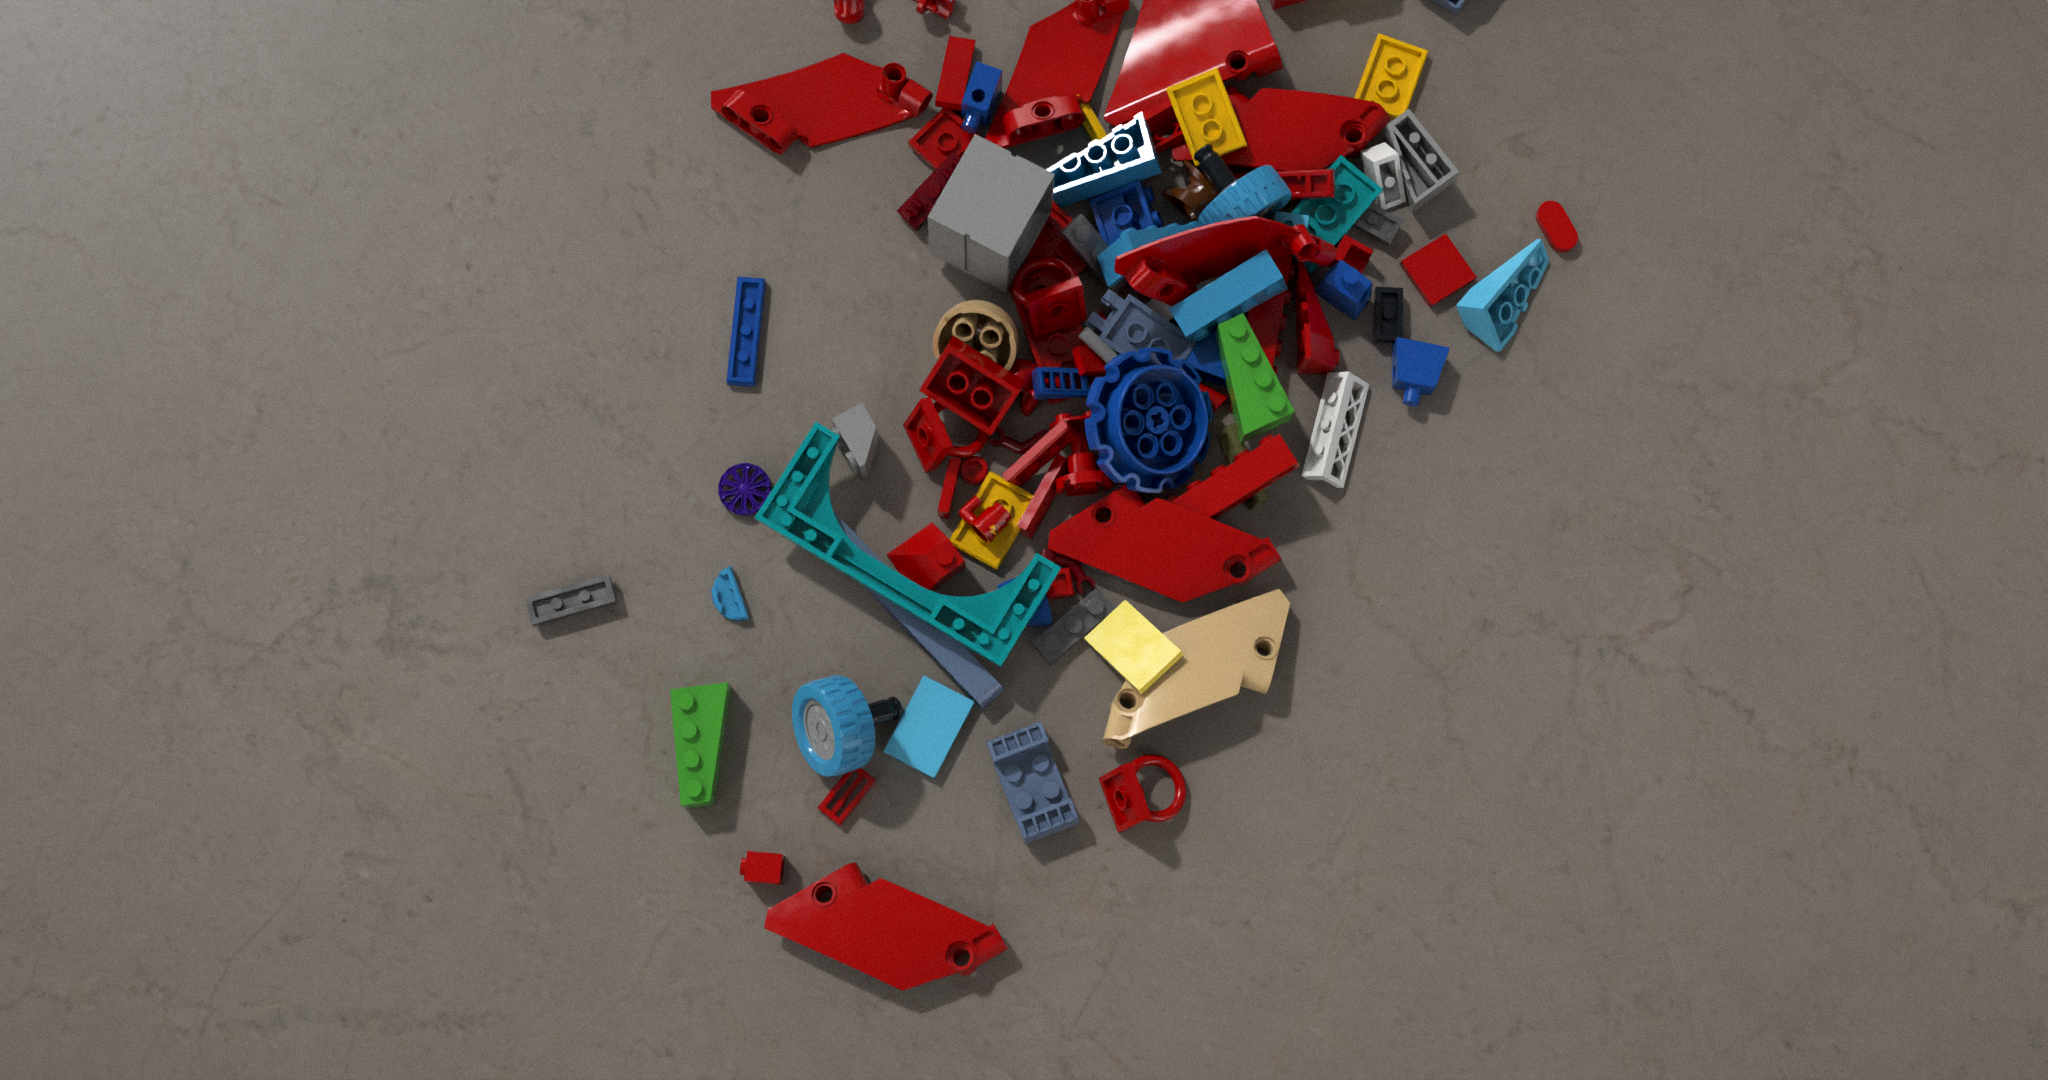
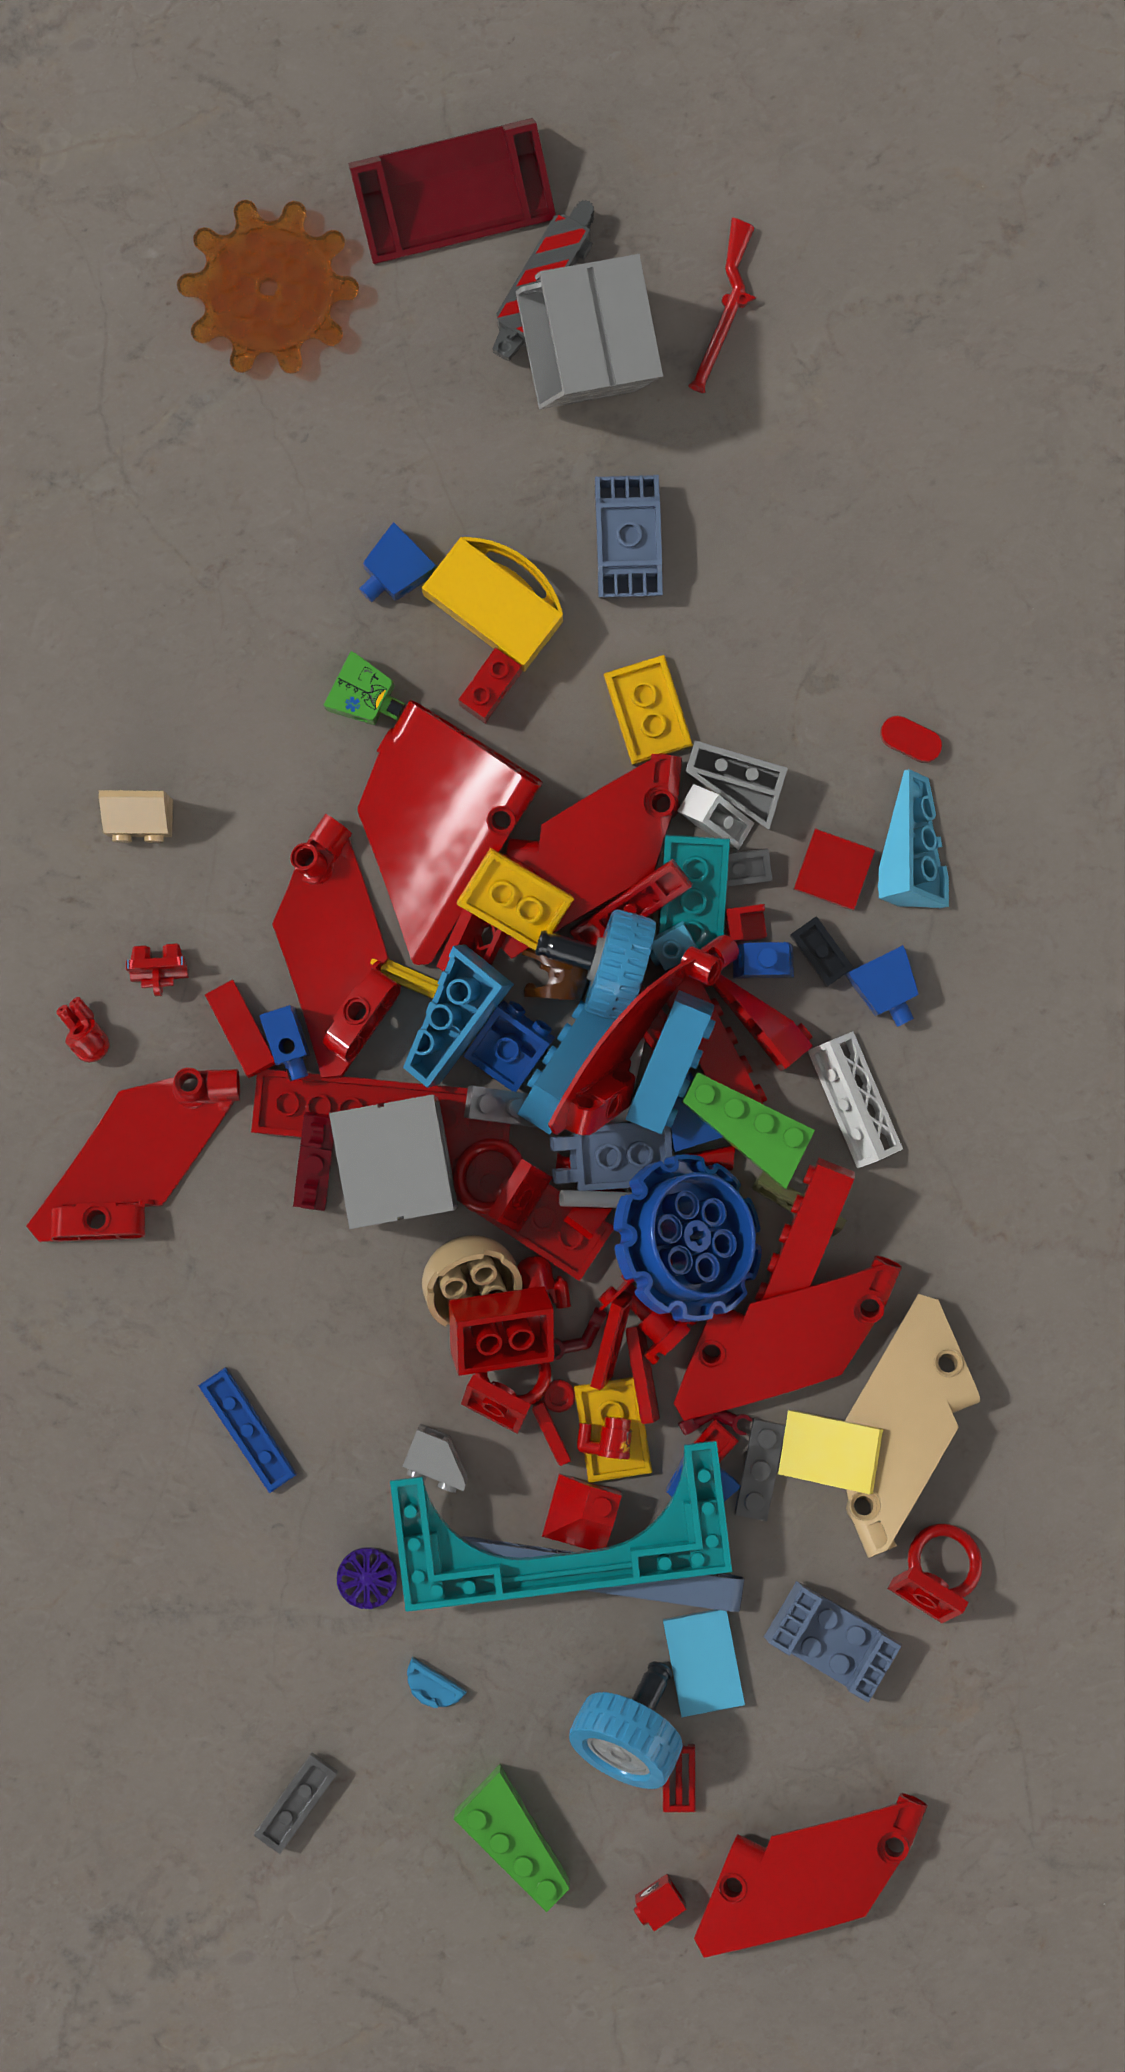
camera: 35 degrees left, 10 degrees up
(1041, 392) = (560, 1278): blue slope -> none

